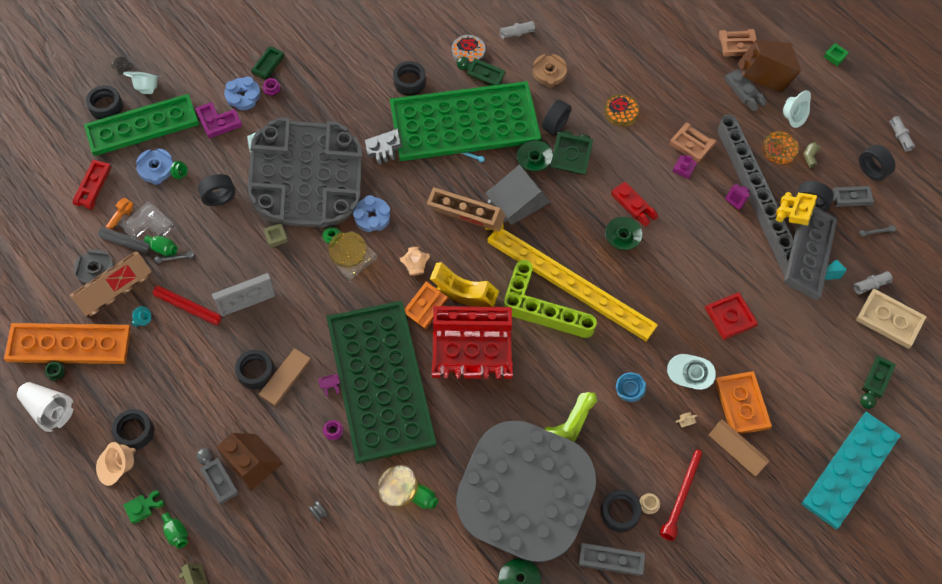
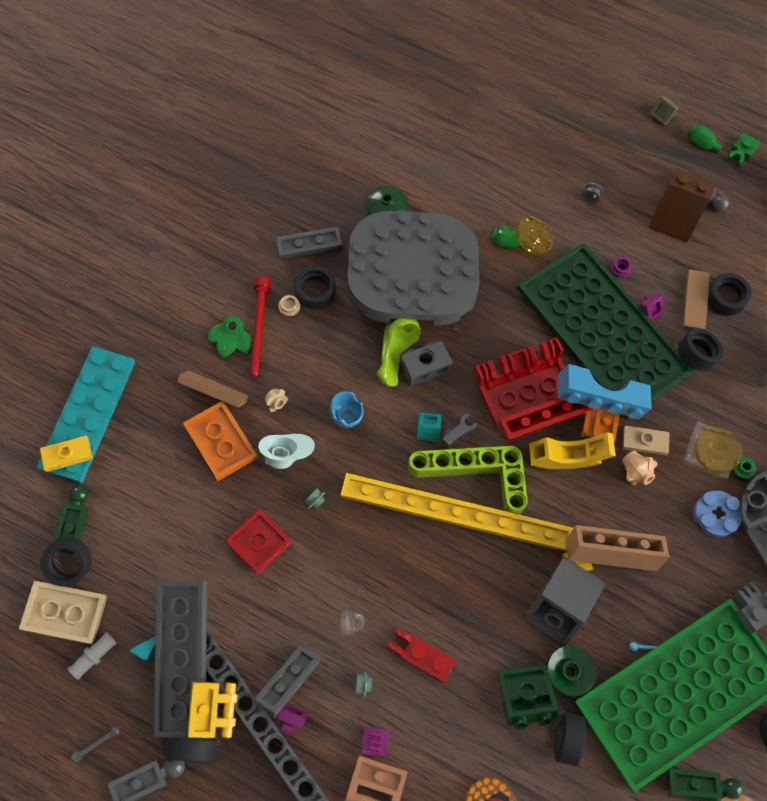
camera: 155 degrees right, 5 degrees up
(300, 323) = (708, 342): none -> black tyre
(396, 283) = (645, 440): none -> tan plate
(399, 302) = (580, 387): none -> dark azure arch
(549, 336) = (453, 436): none -> dark grey plate
(556, 397) = (418, 372): none -> dark grey brick
(564, 356) = (429, 427): none -> teal slope
(626, 227) = (420, 588): dark green dish -> none
(678, 331) = (314, 499): none -> sand green plate
(679, 238) = (348, 622): none -> clear tile
(682, 199) = (362, 684): none -> sand green plate
(711, 490) = (228, 339): none -> green plate
(736, 214) = (287, 681): none -> dark grey plate
(875, 431) = (66, 453): none -> yellow plate
(885, 348) = (50, 570): none -> black tyre

